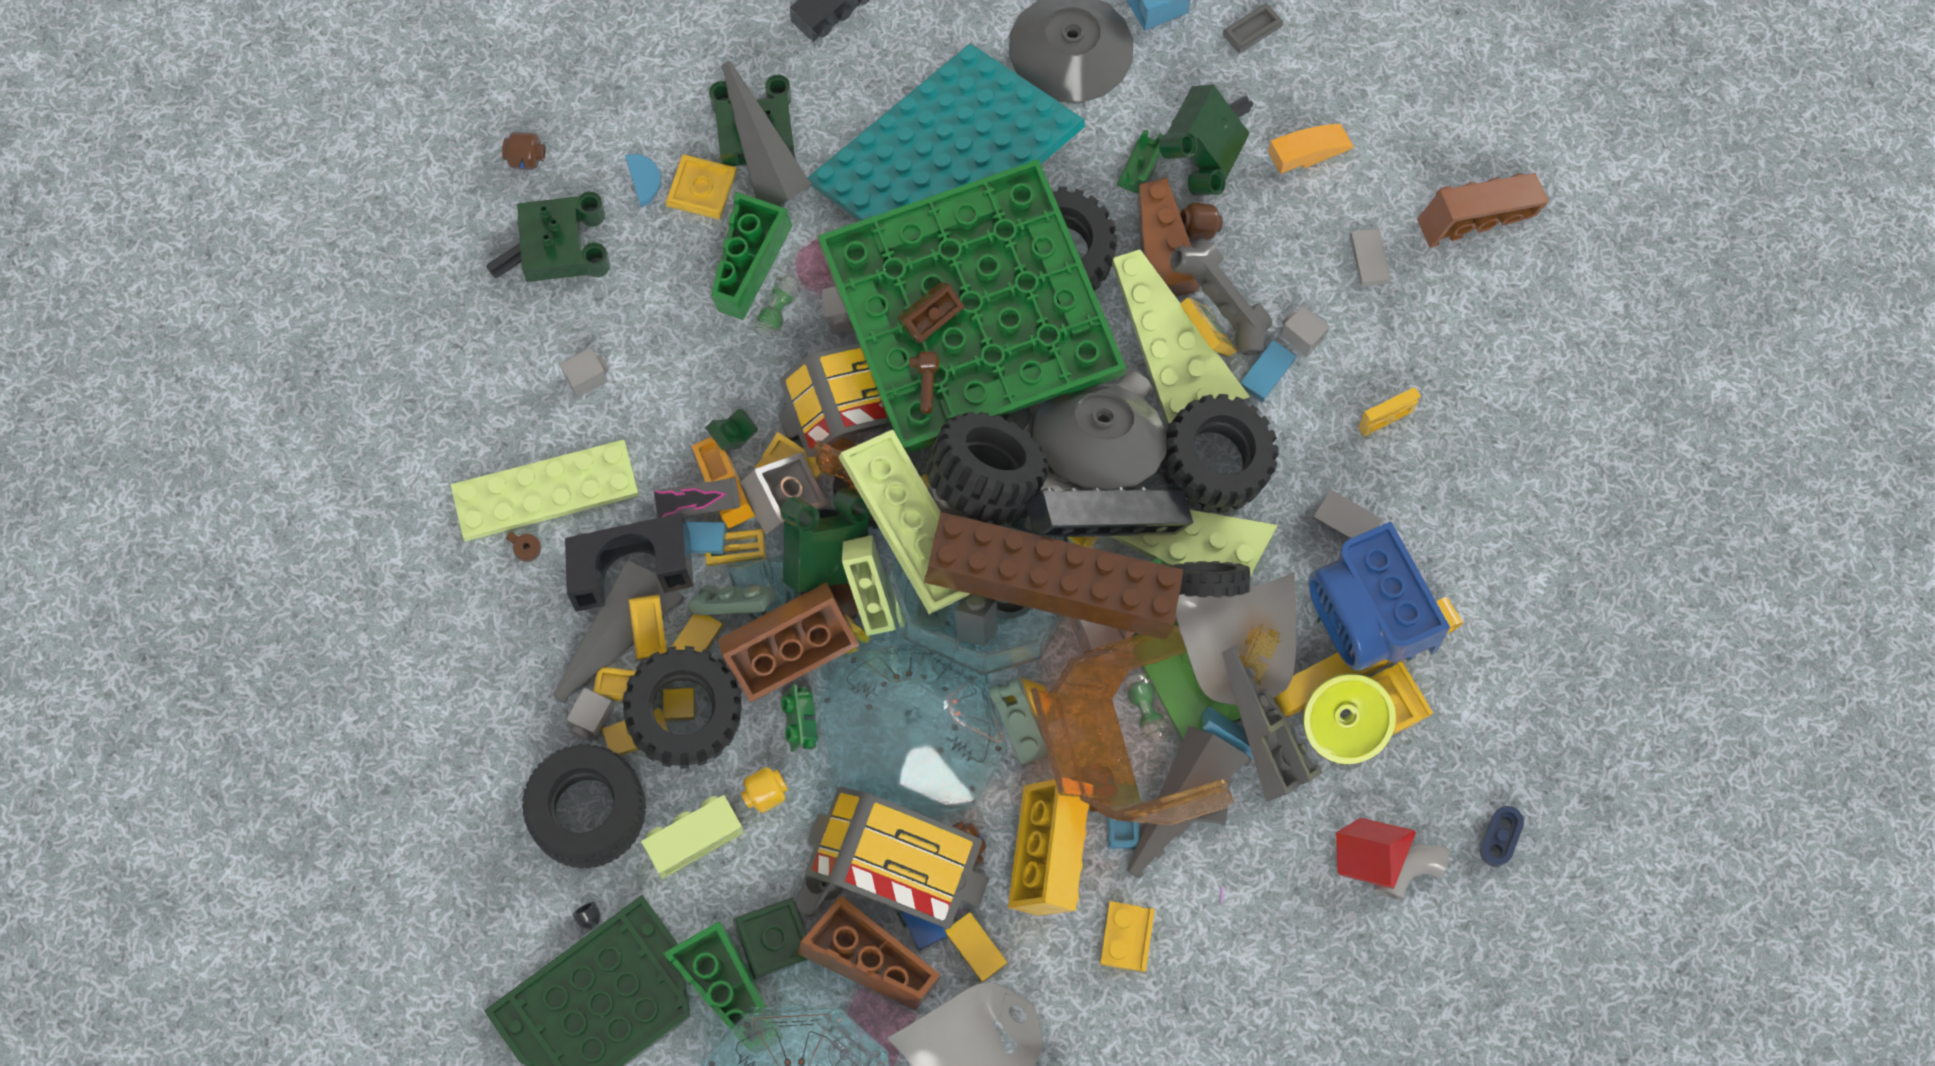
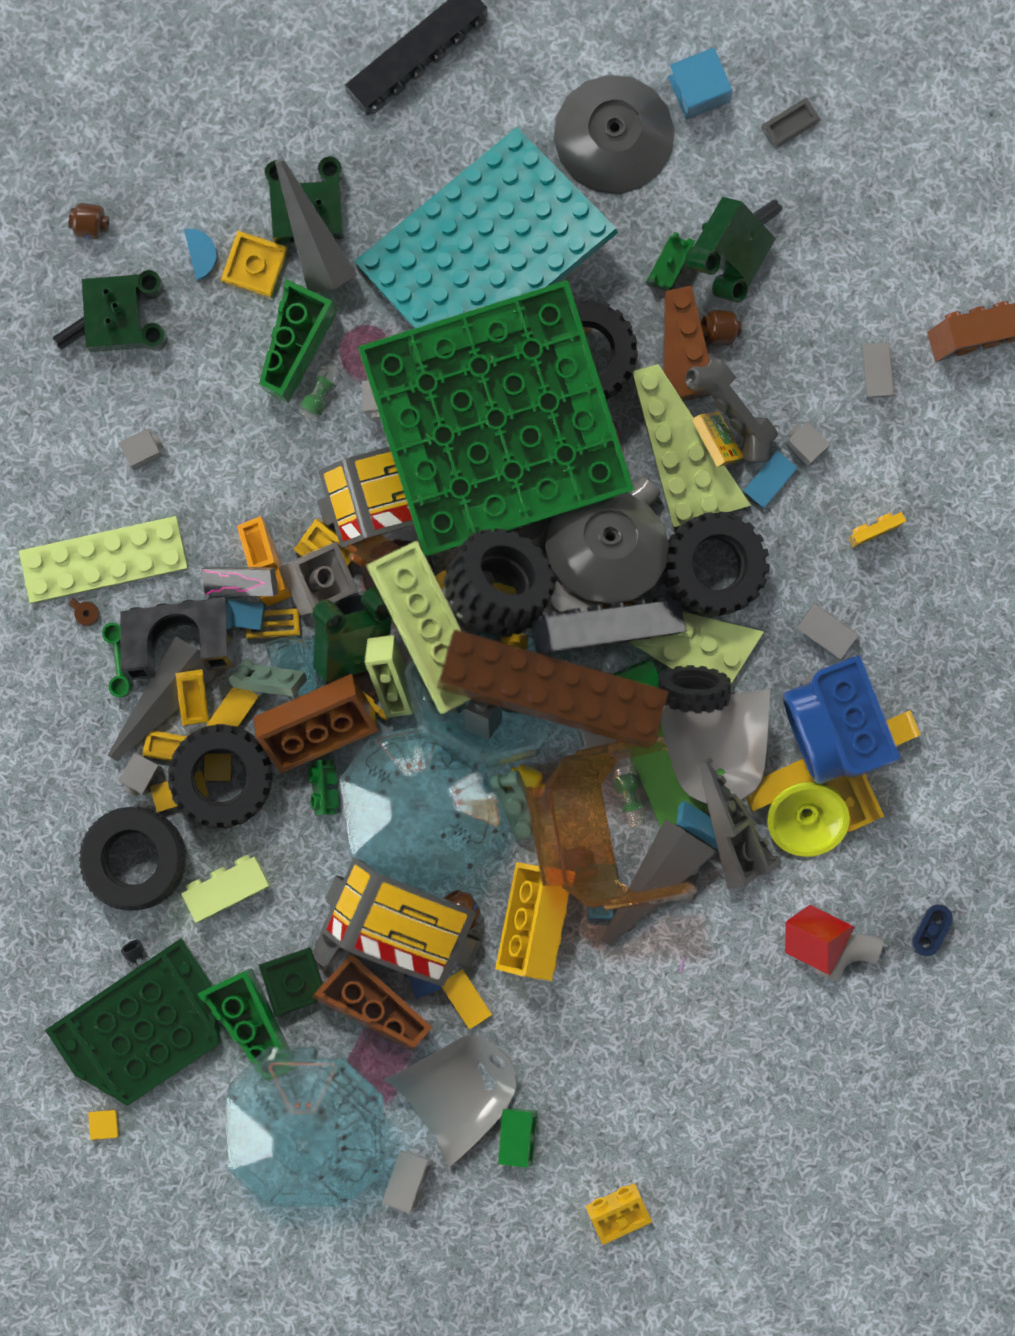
camera: 10 degrees right, 15 degrees up
(564, 619) = (118, 685): none -> green bar
(732, 432) = (274, 514): dark green bracket -> none
(764, 789) = (290, 851): yellow head -> none
(926, 364) = (451, 480): reddish brown piece -> none
(930, 311) = (457, 427): reddish brown slope -> none
(1127, 937) = (597, 997): yellow plate -> none
(1260, 644) = (735, 750): clear yellow hinge -> none
(1308, 146) = (832, 254): light orange slope -> none

